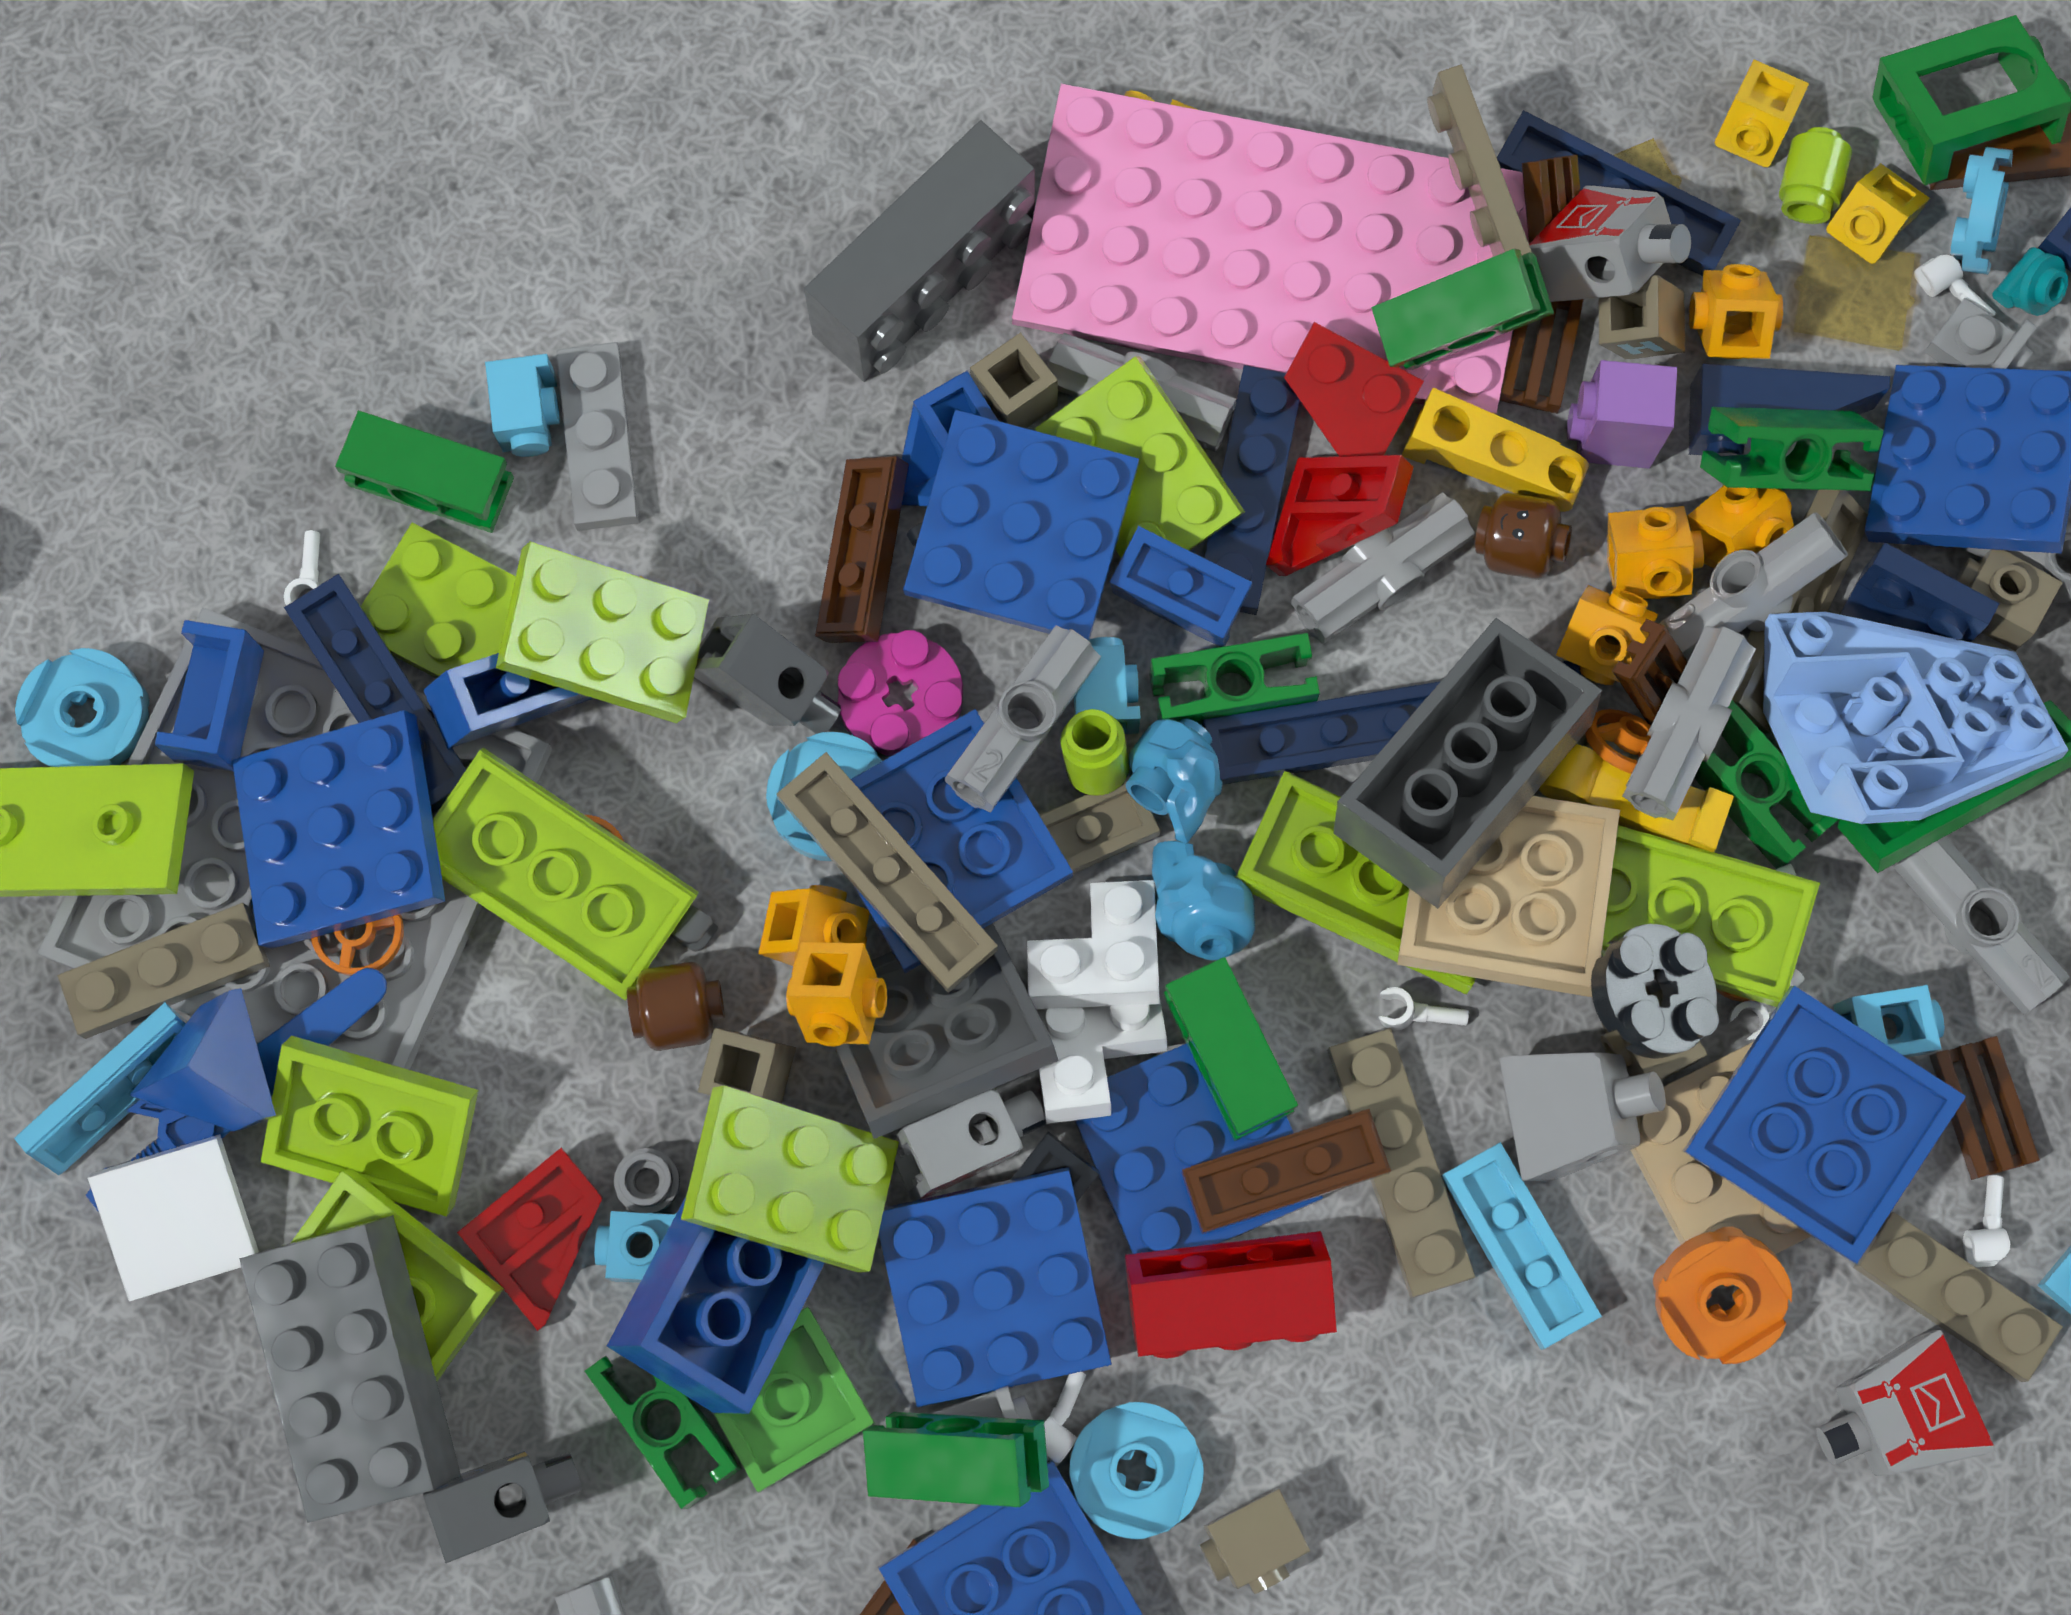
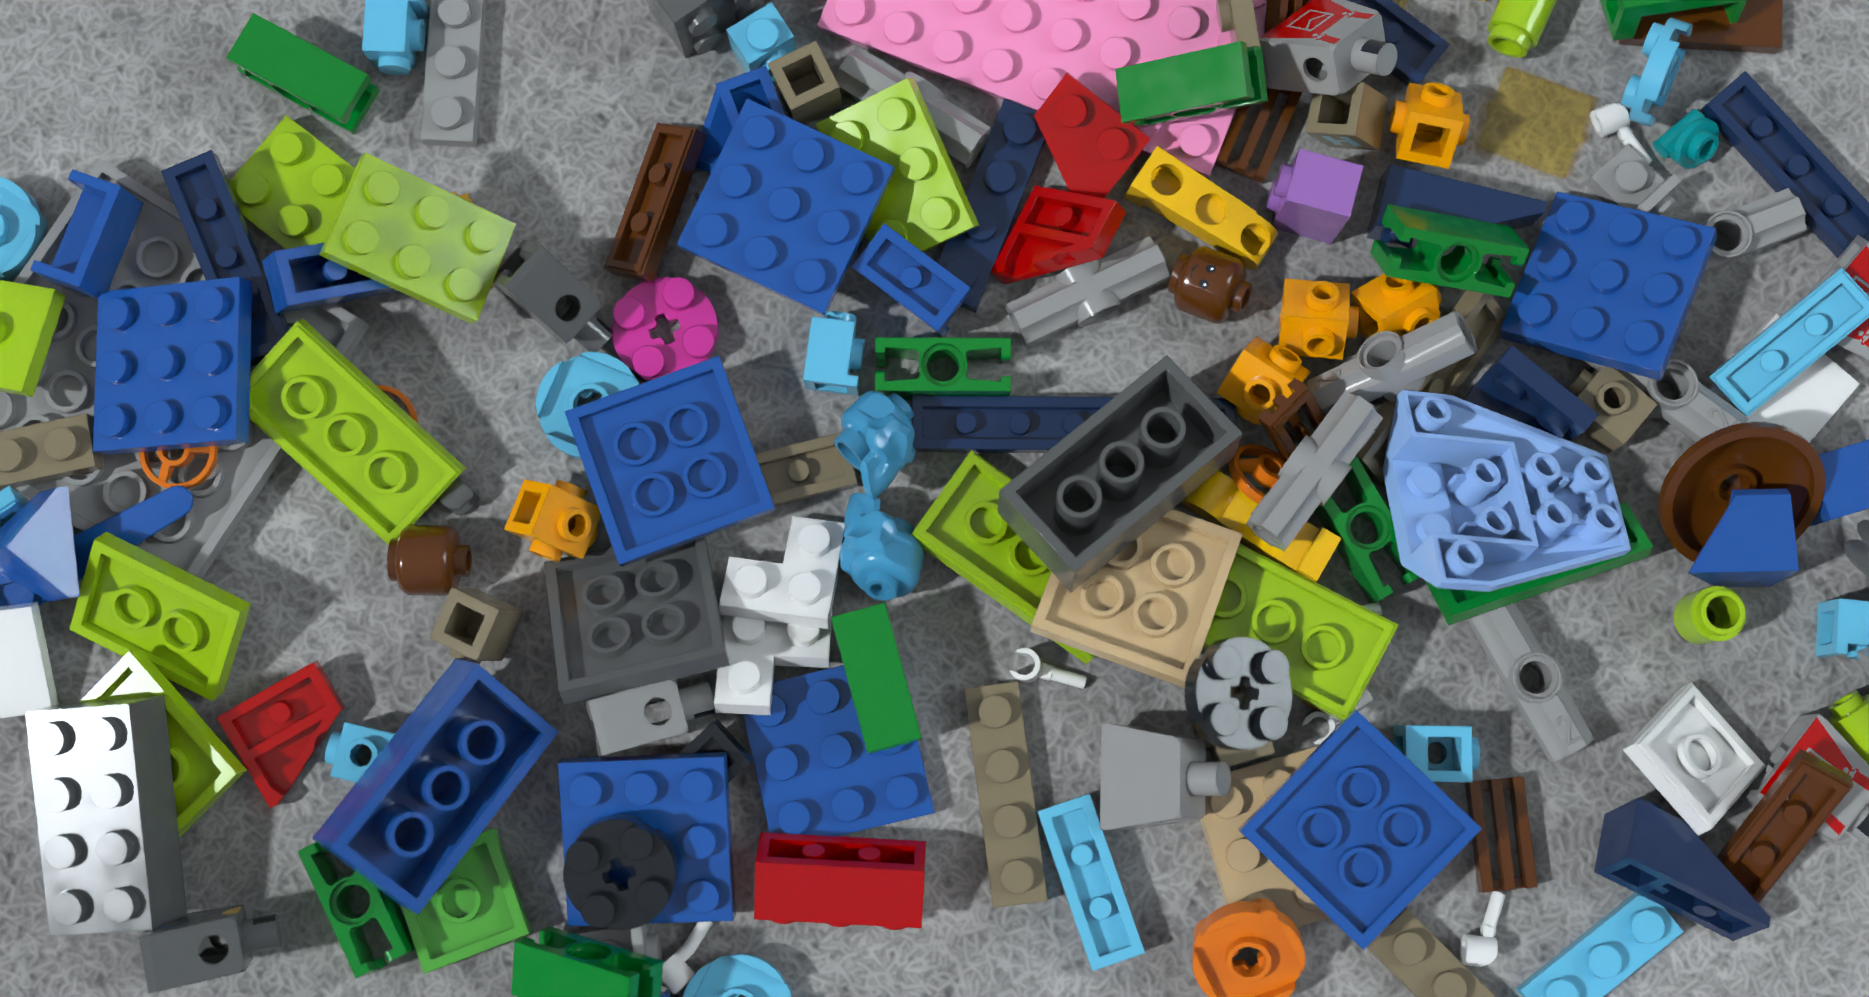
camera: 10 degrees right, 5 degrees up
(309, 571) = (195, 142): white hand -> none
(629, 1170) = (365, 700): light grey plate -> none
(790, 1179) = (486, 727): lime plate -> none
(835, 993) = (554, 577): light orange brick -> none
(887, 872) = (617, 482): dark tan plate -> none
(952, 343) = (761, 38): none -> medium azure brick
(958, 1364) = (604, 900): none -> black plate
(1002, 747) = (730, 395): light grey piece -> none
(1095, 752) = (813, 409): lime brick -> none
(1285, 1171) = (905, 787): reddish brown tile -> none
(1876, 213) = (1567, 56): yellow bracket -> none

